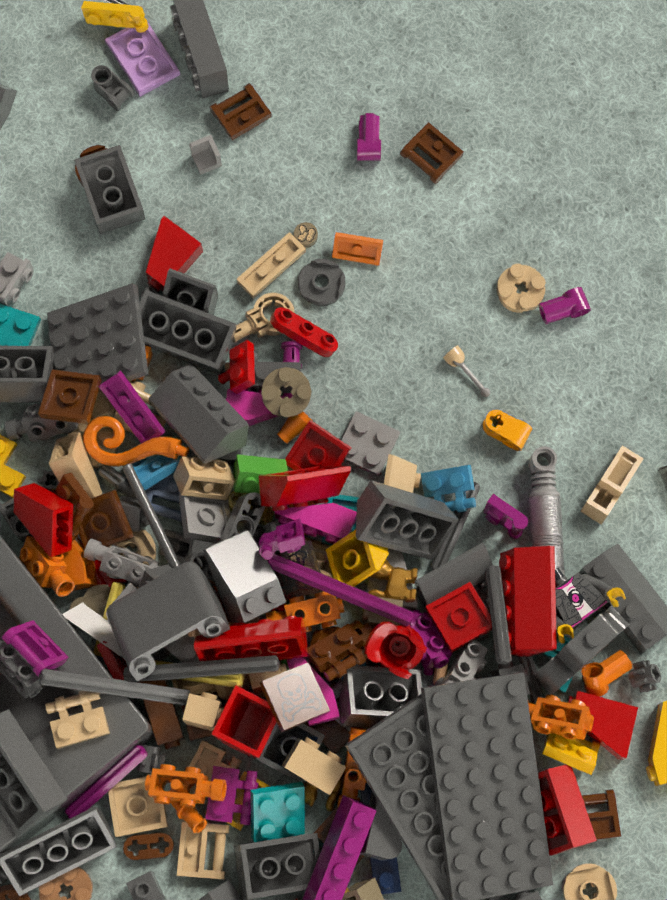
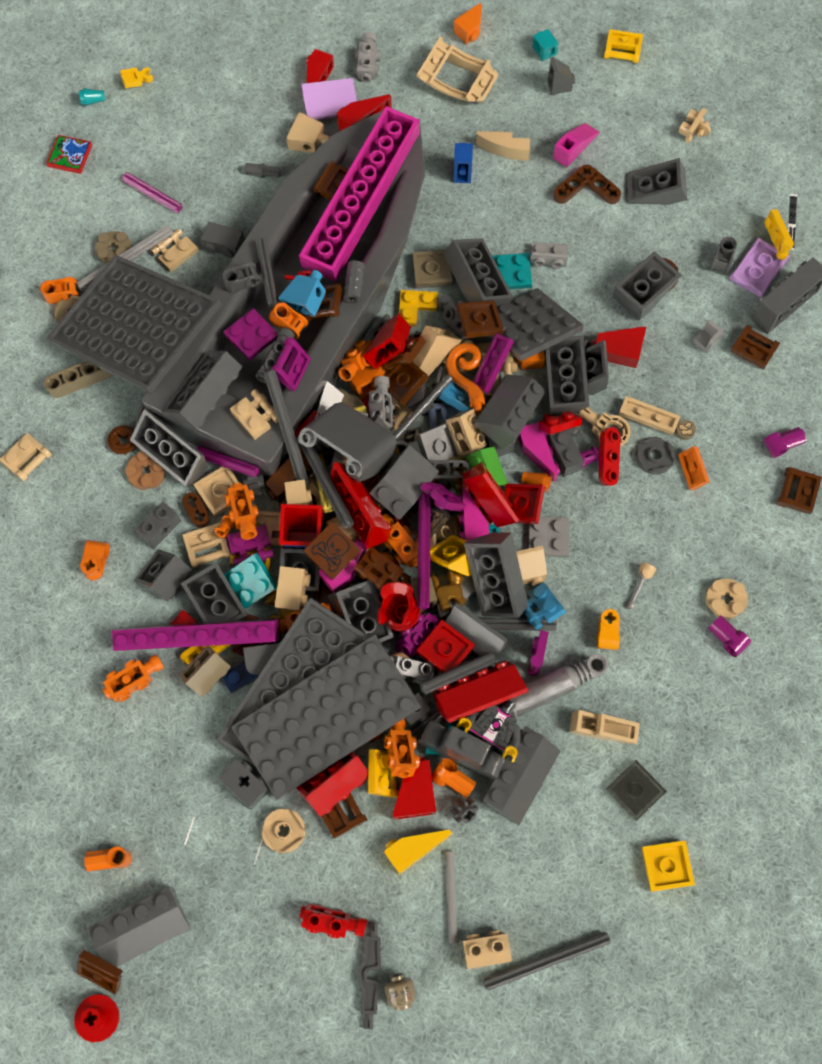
camera: 70 degrees right, 5 degrees down
(300, 390) = (560, 469): dark tan plate -> none

